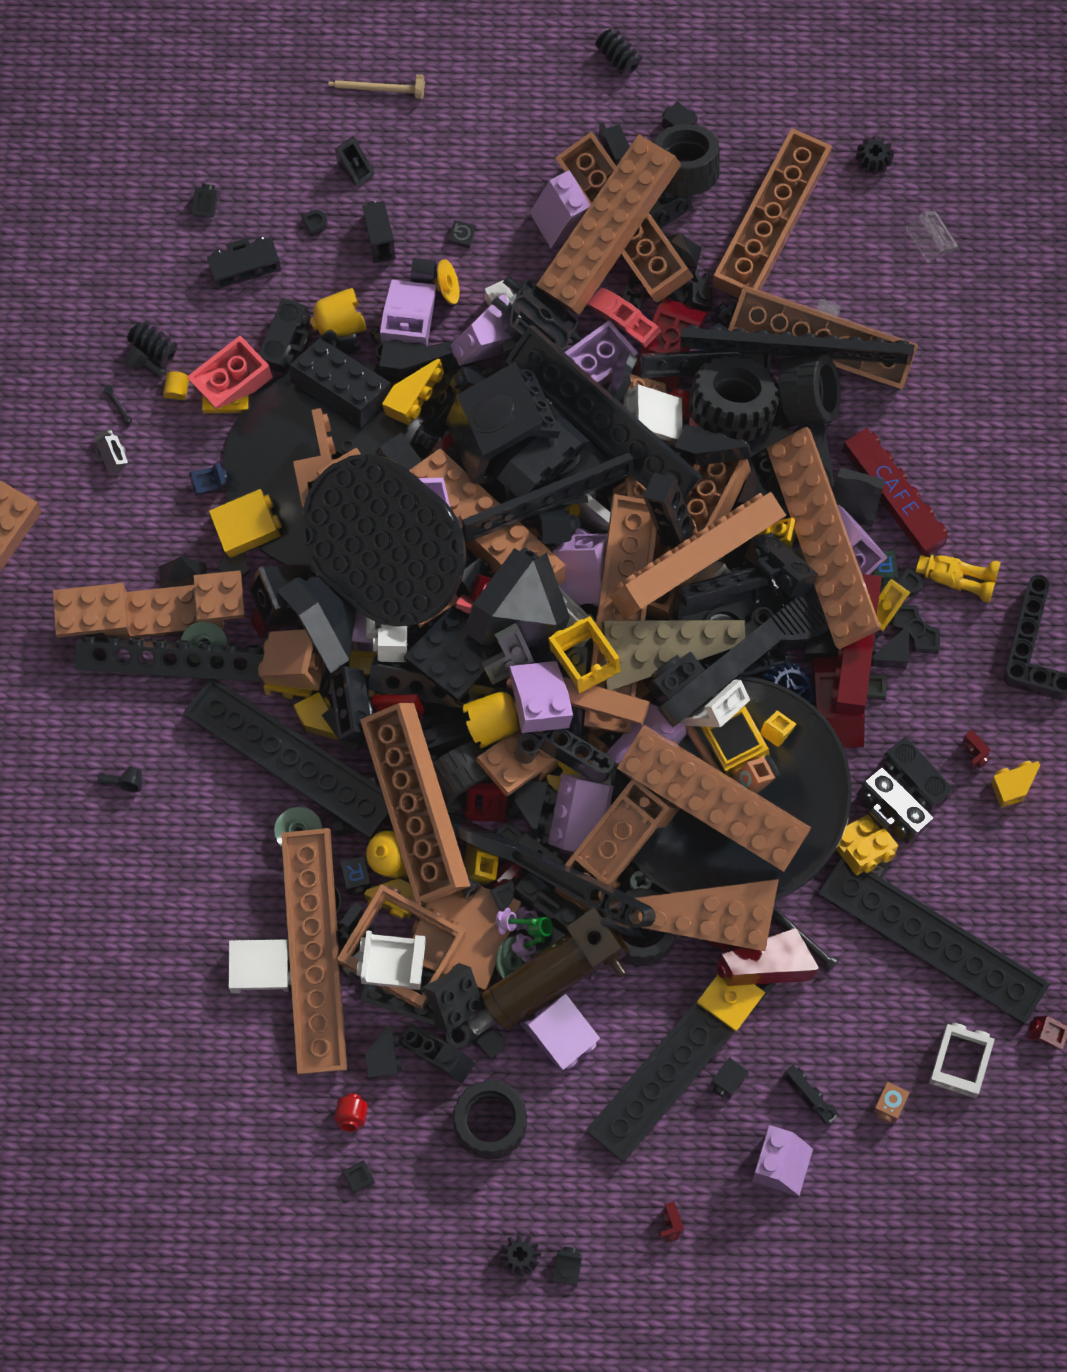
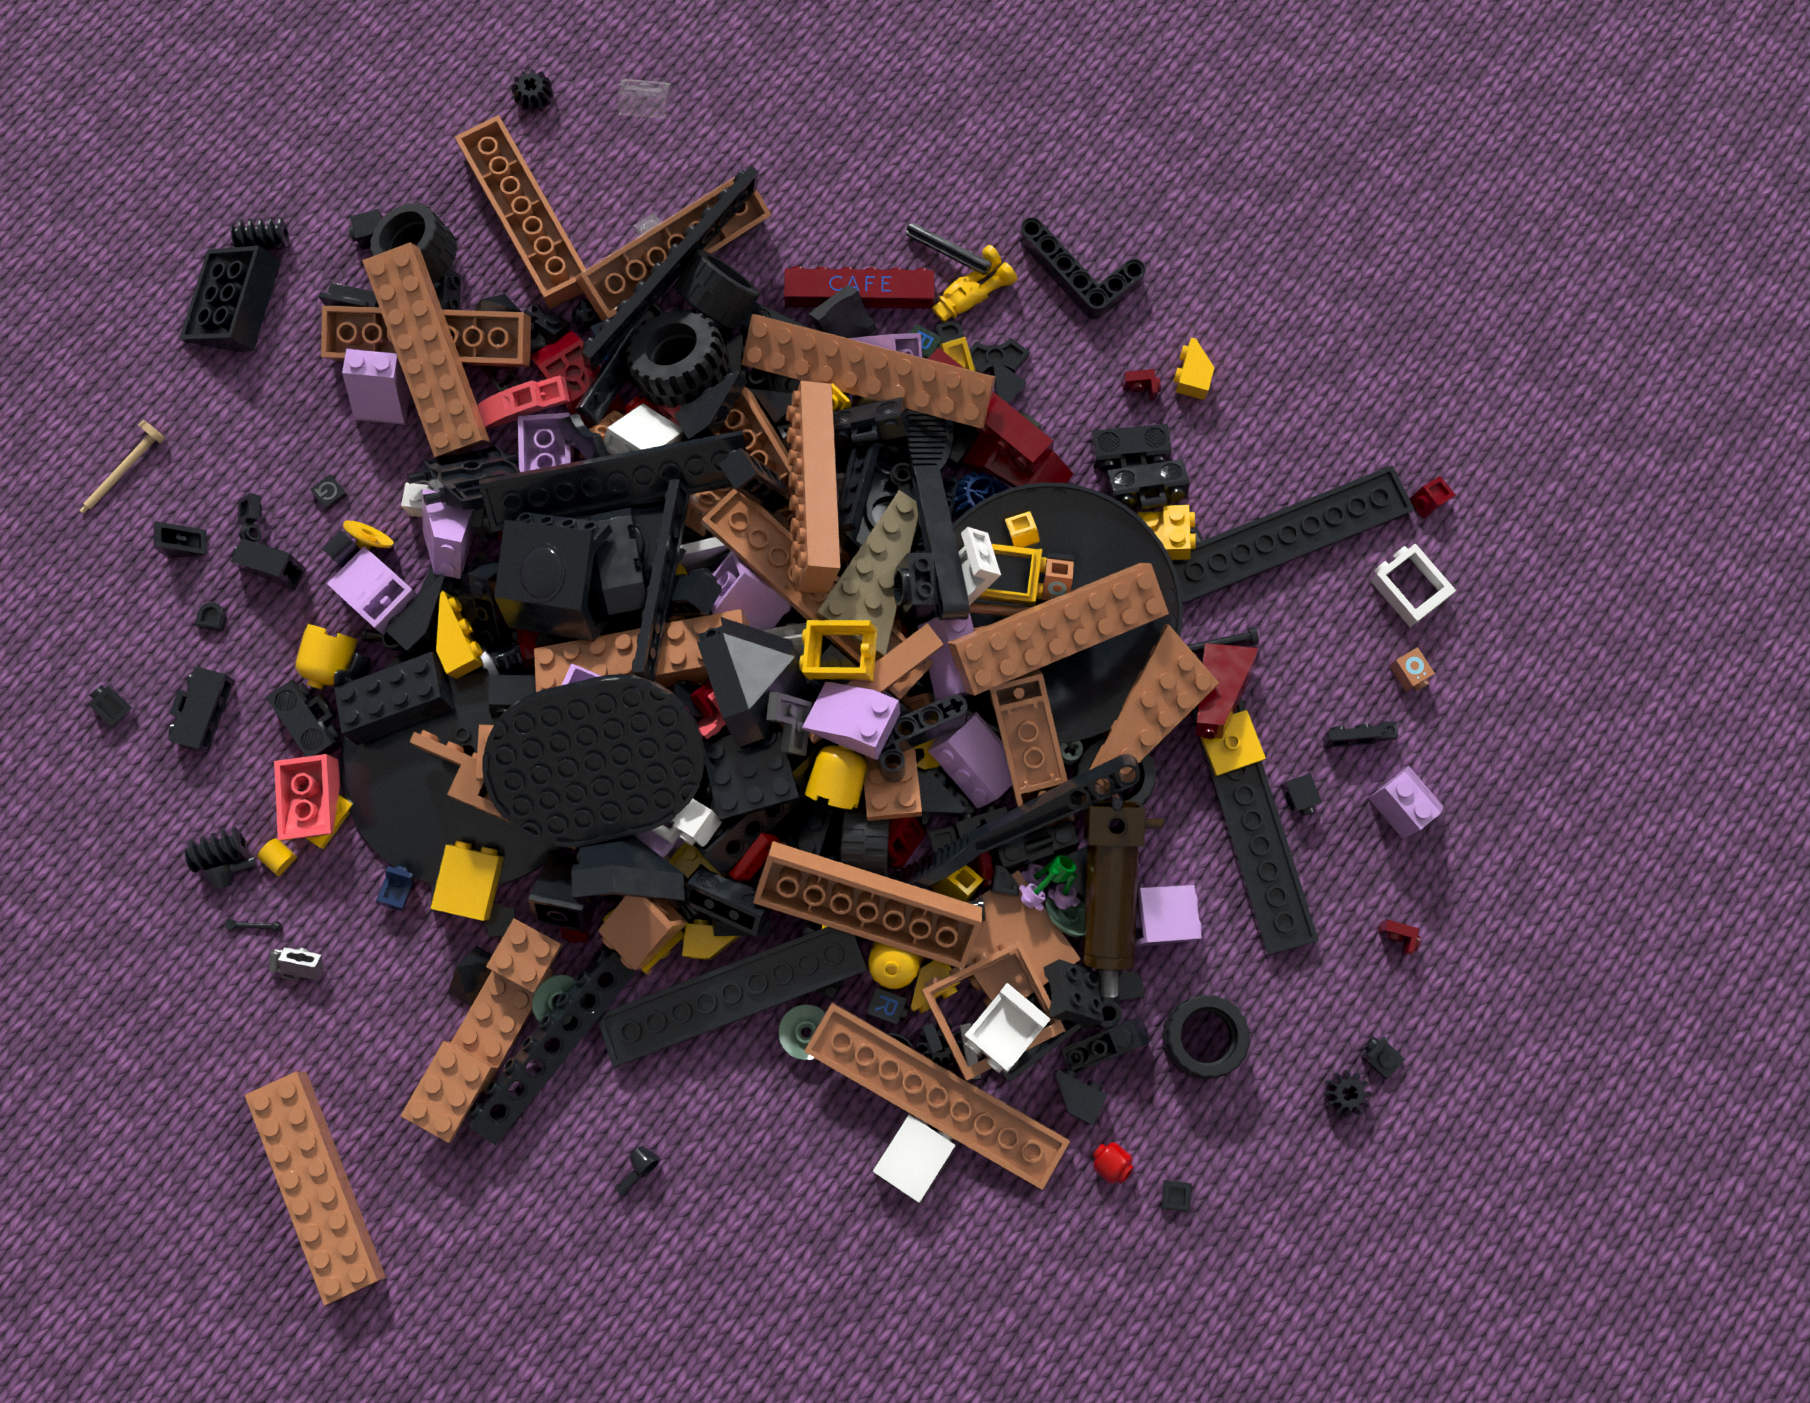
camera: 60 degrees left, 5 degrees up
(408, 192) = (248, 512): none -> black plate
(556, 67) = (231, 298): none -> black slope
(976, 535) = (948, 249): none -> black axle

